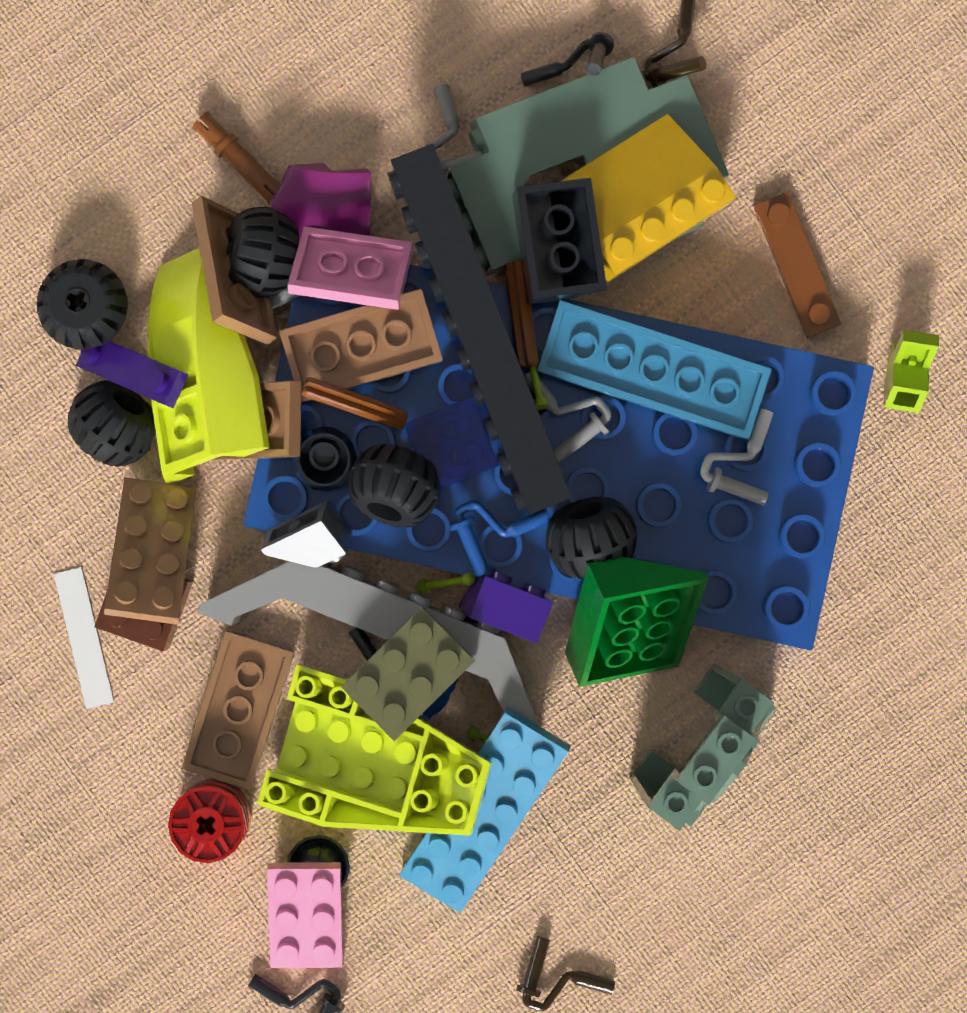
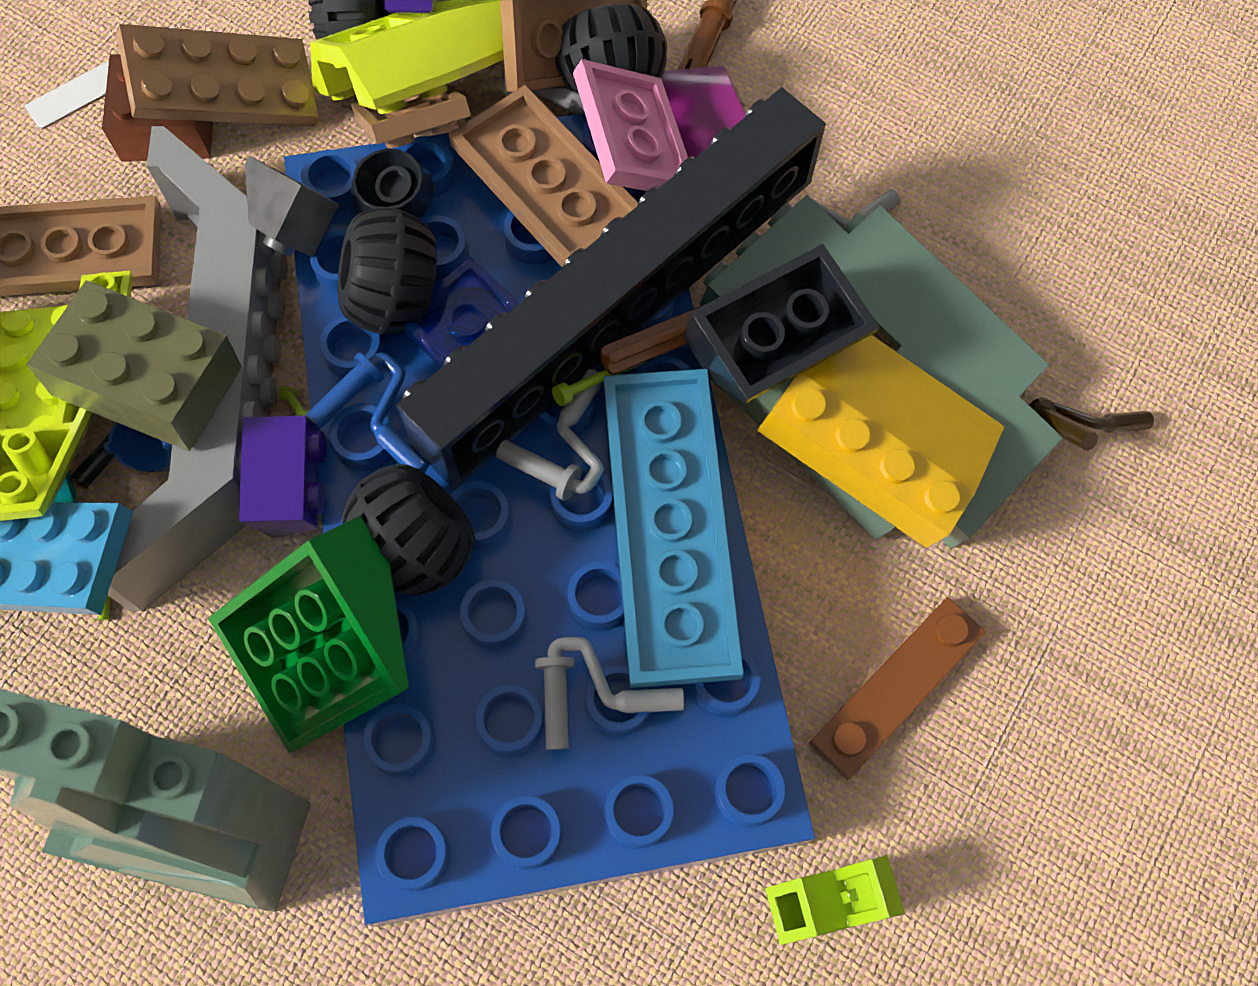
camera: 65 degrees right, 20 degrees down
(354, 403) = (471, 187): dark orange axle -> none
(600, 45) = (1037, 334): black piece -> none

